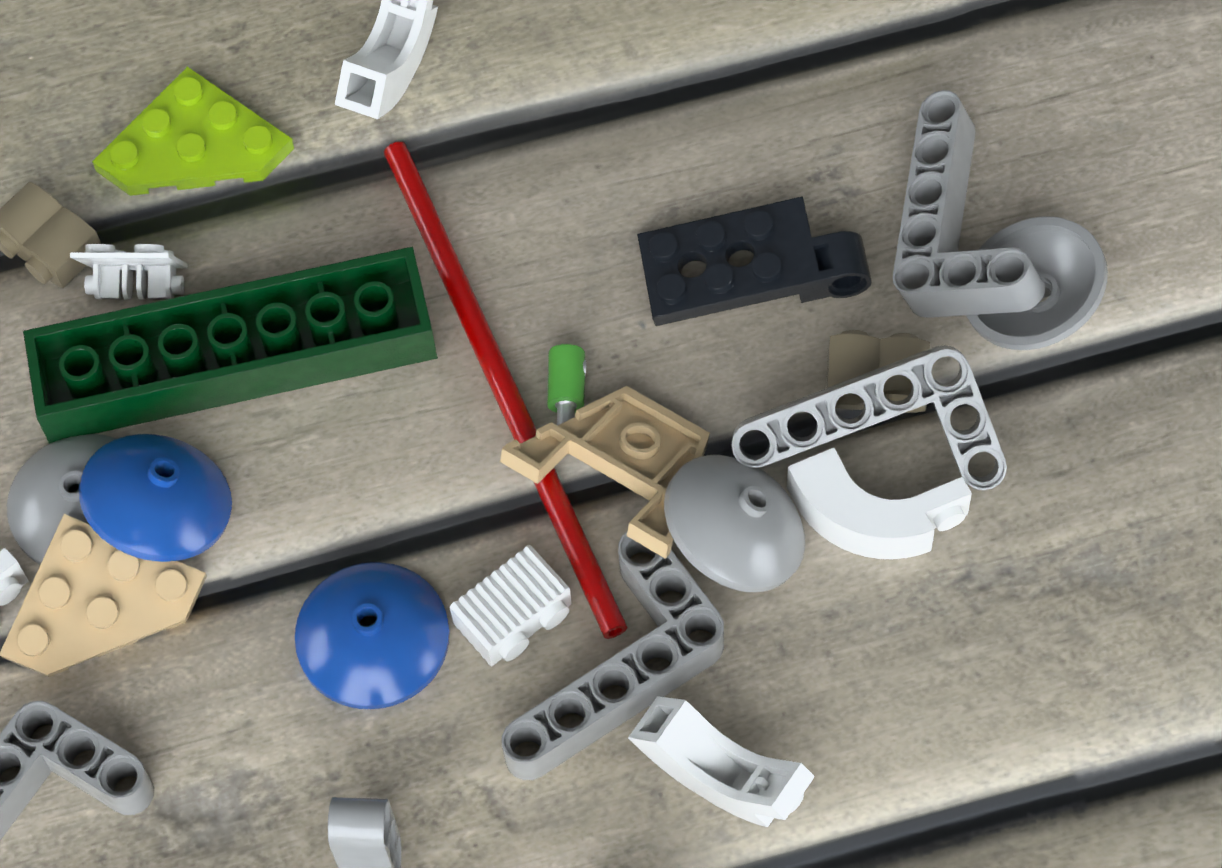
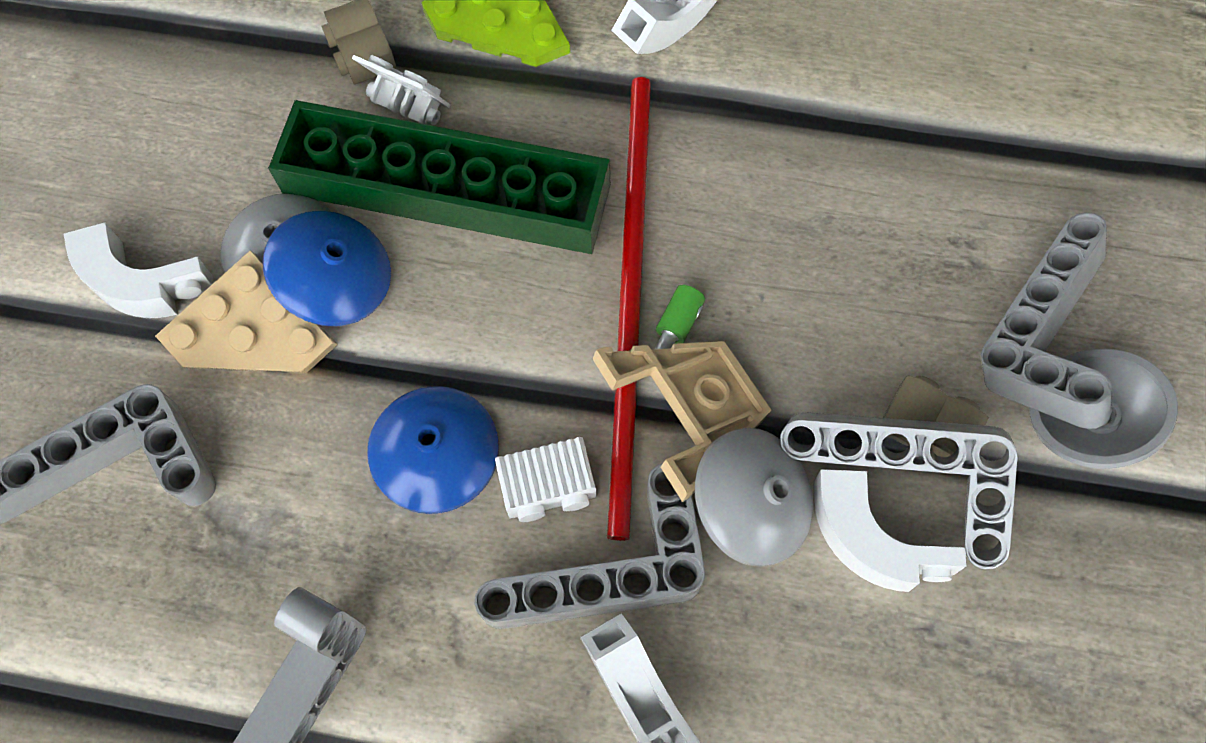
camera: 25 degrees right, 5 degrees up
(783, 264) = (896, 300): black hinge -> none

